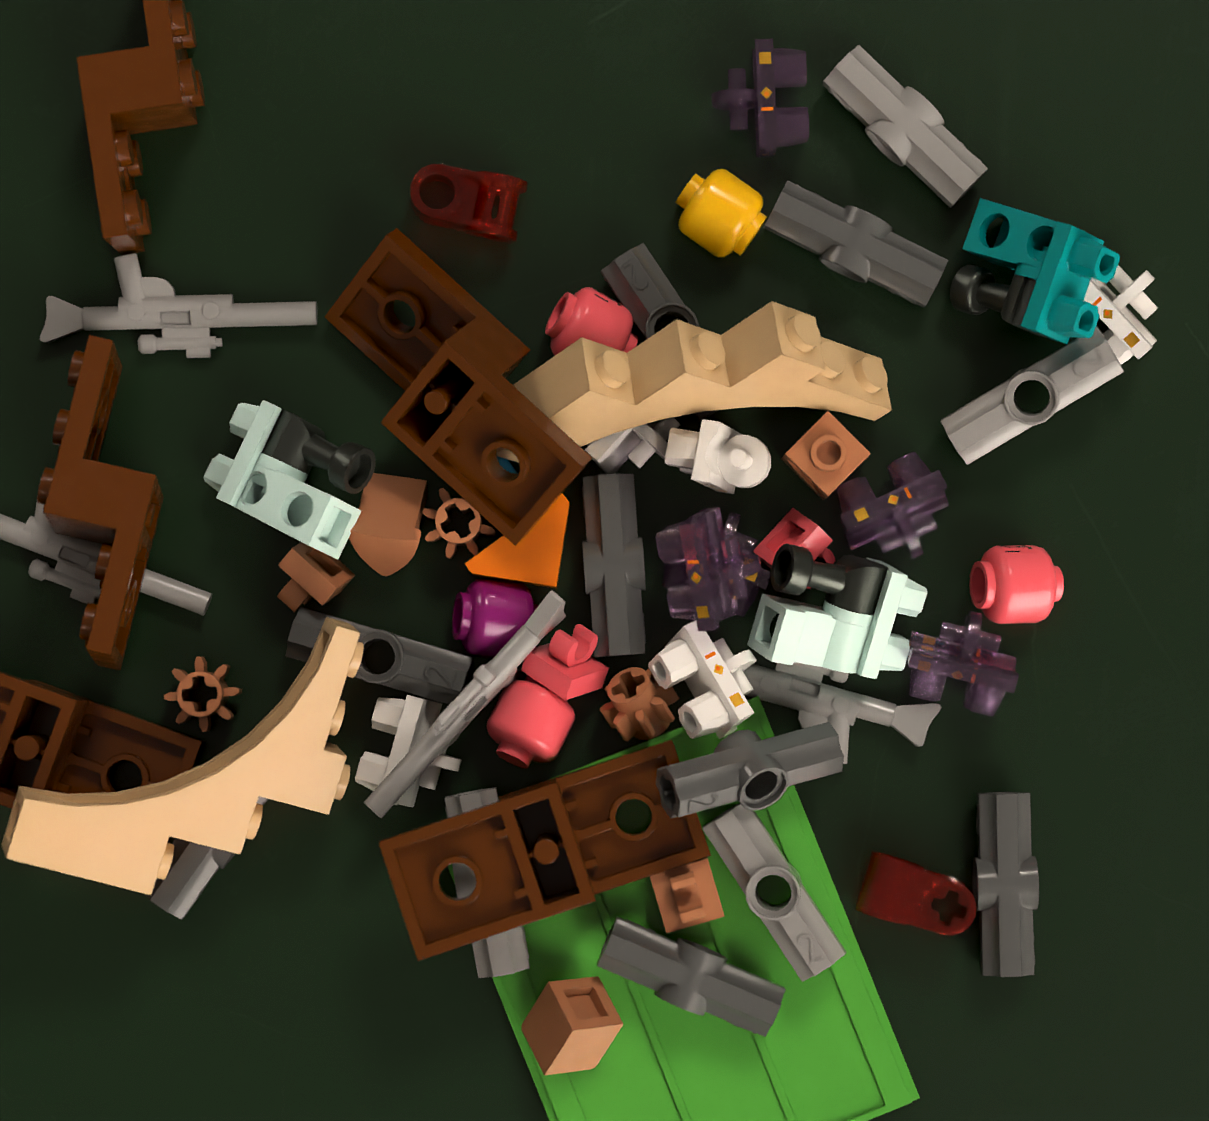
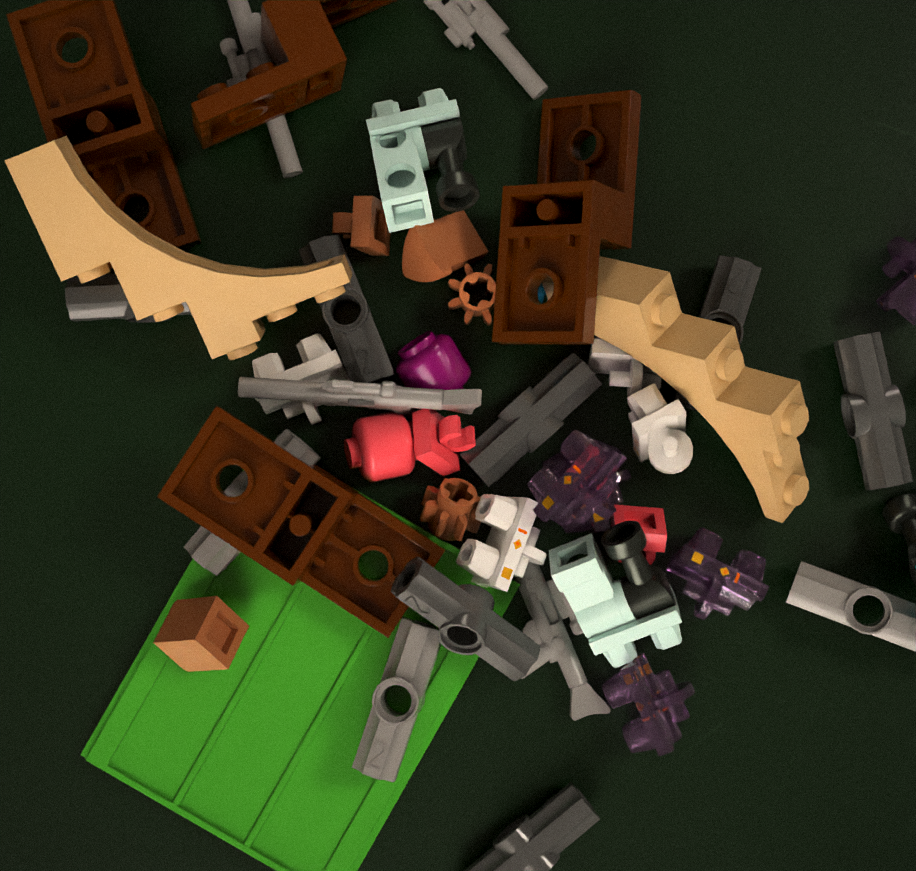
camera: 55 degrees right, 0 degrees up
(213, 706) = (236, 204): nougat gear -> none
(472, 201) = (696, 135): clear red piece -> none
(535, 558) = (495, 362): orange slope -> none
(592, 317) = (687, 274): coral head -> none
(687, 895) = (349, 643): nougat tile -> none
(691, 976) = (297, 689): dark grey piece -> none
(720, 213) = (821, 305): yellow head -> none
(825, 455) = (716, 502): nougat brick -> none
(904, 894) = (468, 788): clear red piece -> none
(1015, 584) = (732, 698): coral head -> none

